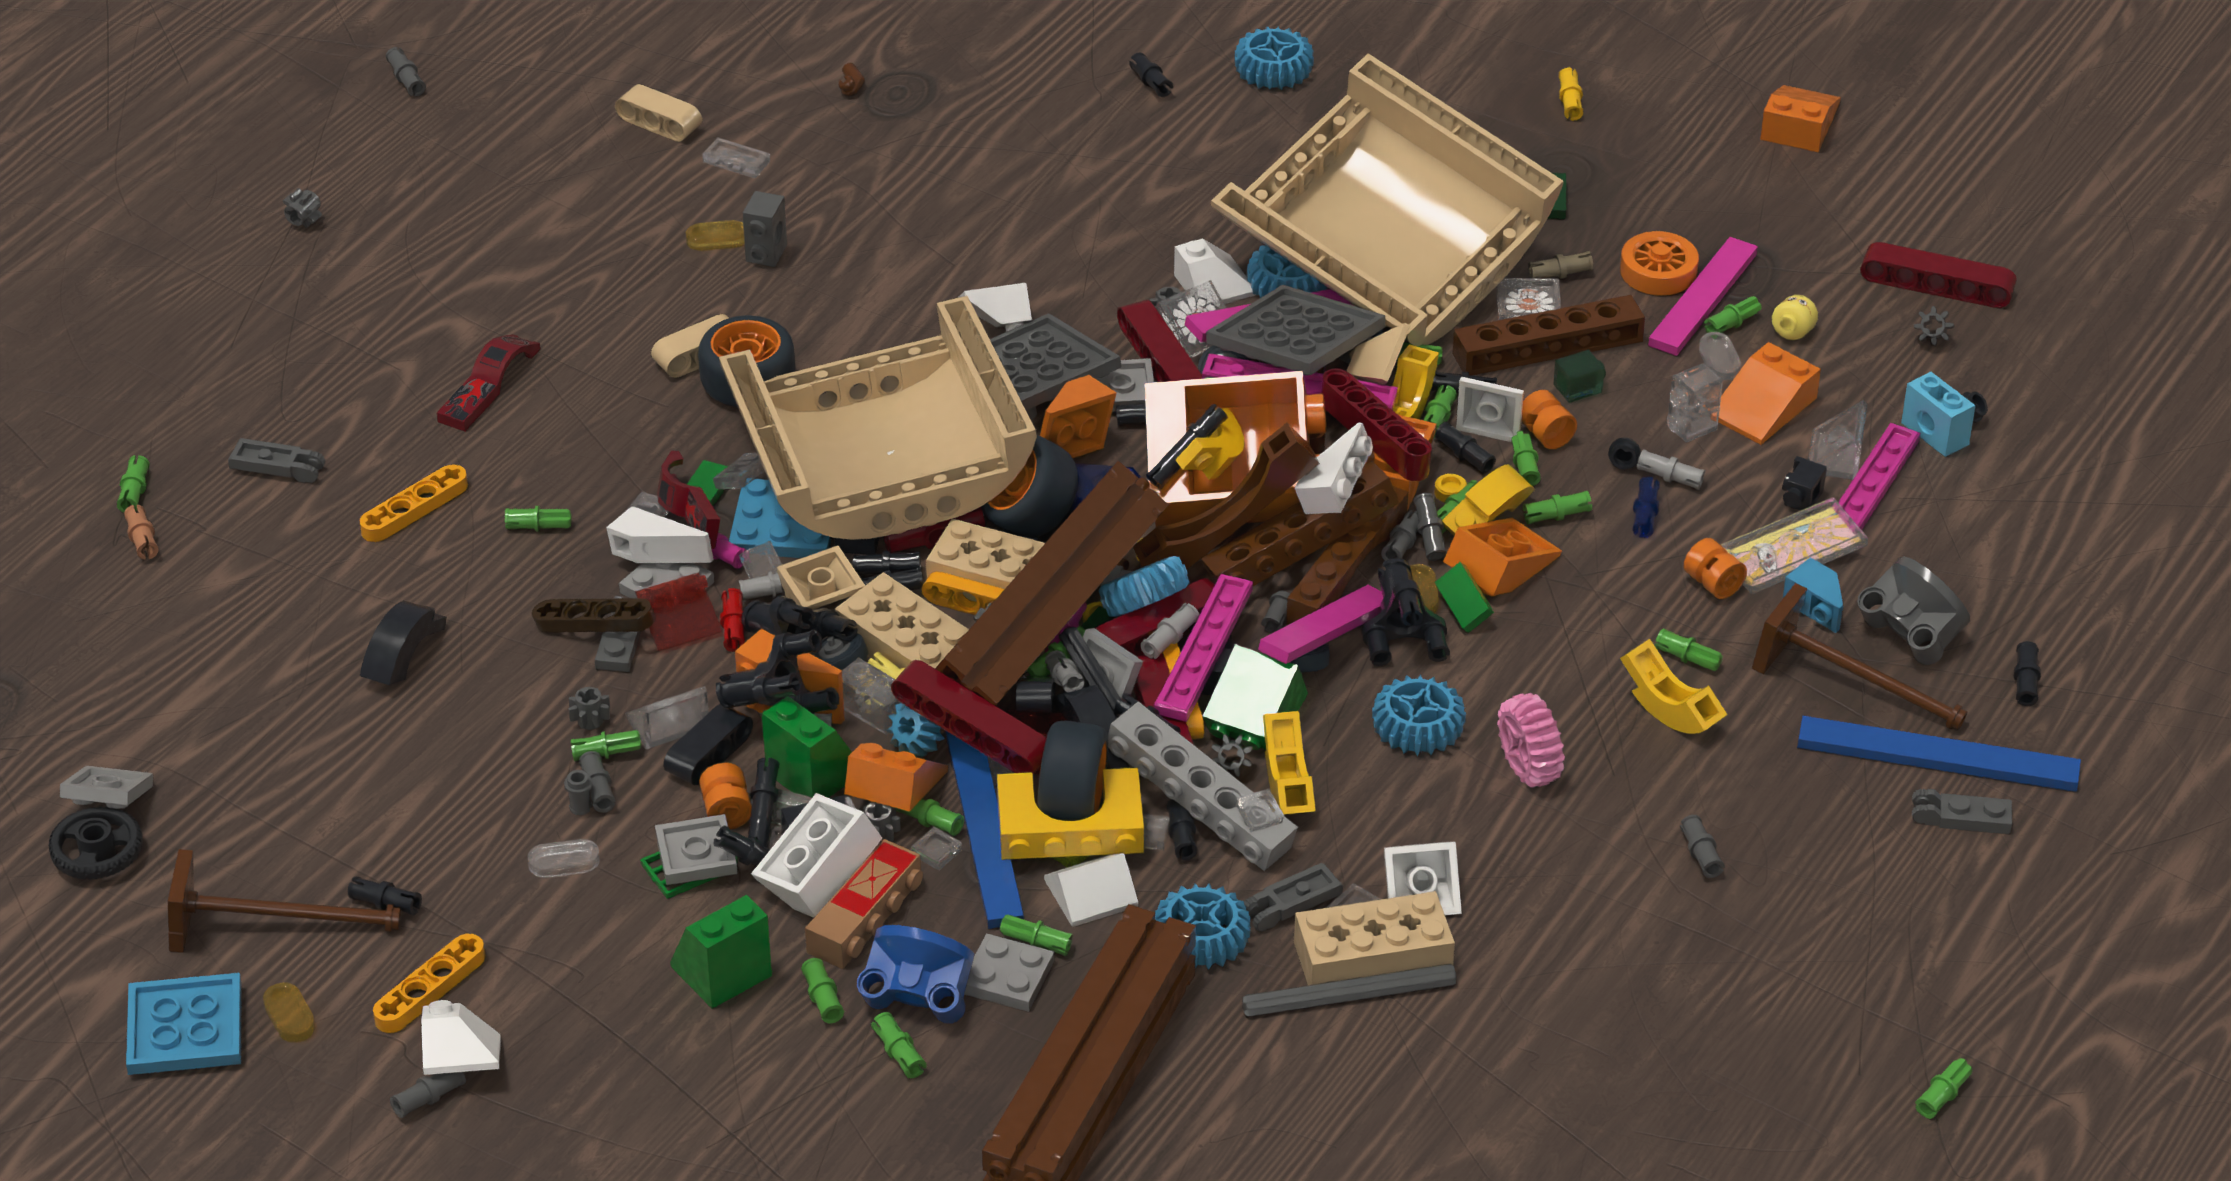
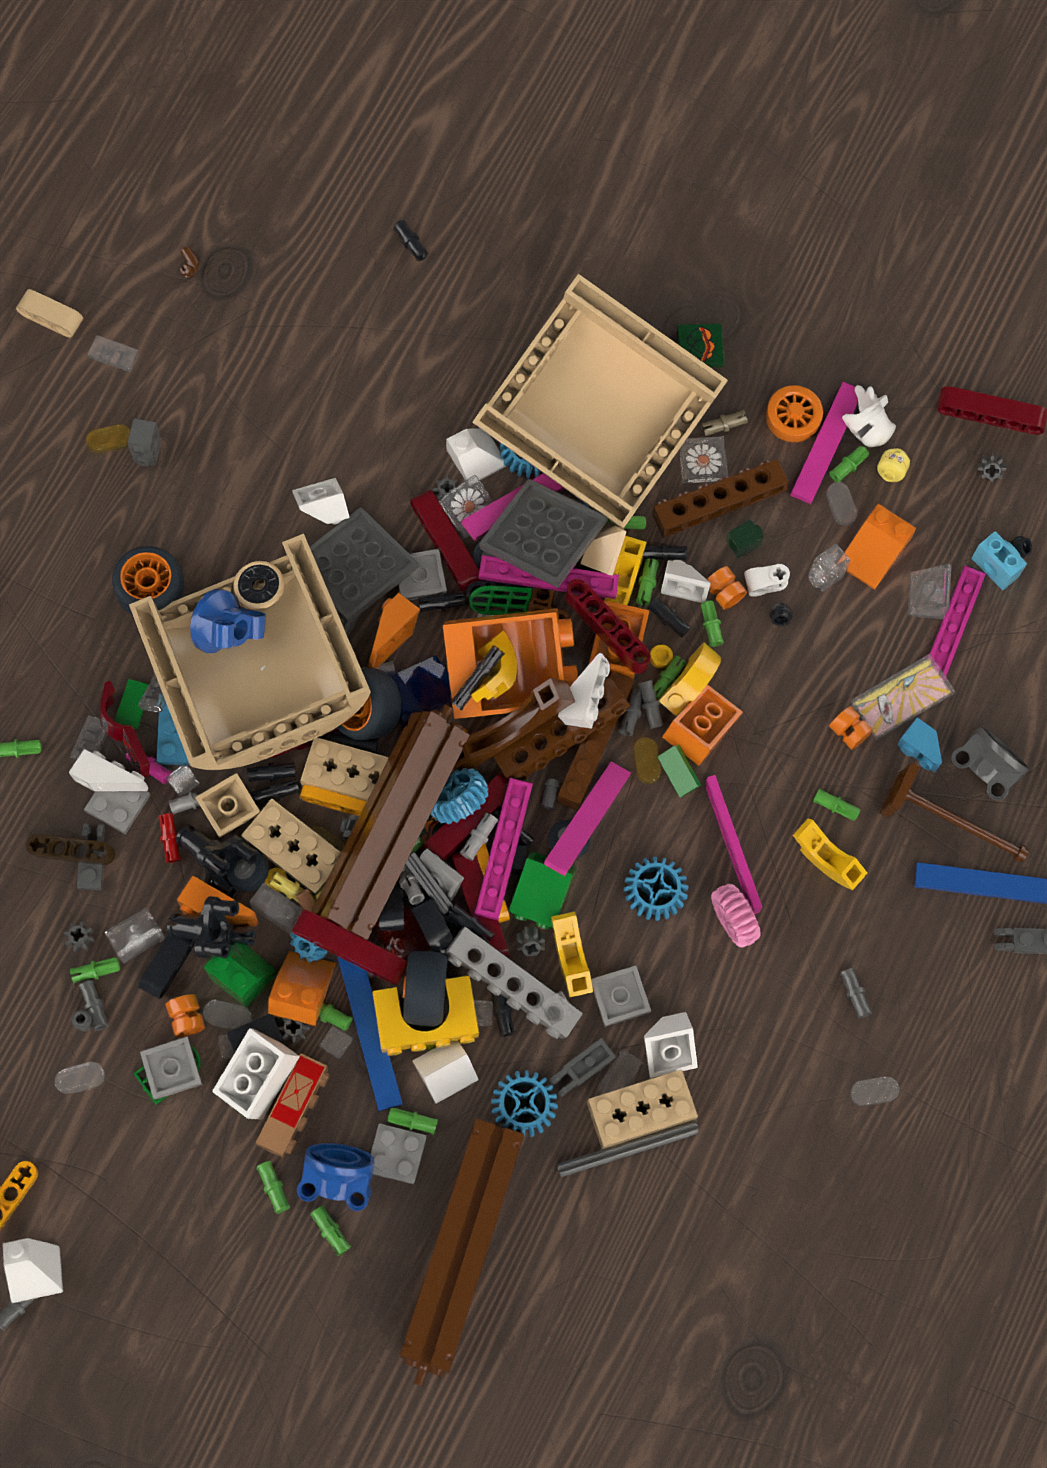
camera: 10 degrees left, 30 degrees up
(679, 351) = (100, 567): tan beam -> none
(681, 611) = (130, 836): clear red hinge -> none
(725, 952) = (201, 1168): green slope -> none
(745, 848) = (205, 1070): black pin -> none
(763, 795) = (212, 1026): black pin -> none
(840, 387) = (223, 624): none -> blue piece
(917, 356) = (258, 598): none -> black wheel
(1274, 58) = (491, 224): dark azure gear -> none
(1355, 824) = (620, 996): none -> light grey plate
(1403, 616) = (638, 795): black wheel -> none
(1530, 664) = (732, 844): none -> dark pink tile
(1557, 507) = (737, 672): bright green pin -> none
(1570, 94) = (719, 237): yellow pin -> none
(1605, 418) = (765, 580): none -> white piece
(1646, 507) = (799, 666): clear blue pin -> none
(1671, 469) = (814, 627): light grey pin -> none
(1723, 957) = (874, 1091): none -> clear tile
(1772, 274) = (872, 423): none -> white piece
(1798, 117) = (887, 246): orange slope -> none
(1804, 484) = (907, 636): black brick -> none
(1943, 1088) = (1025, 1198): bright green axle -> none

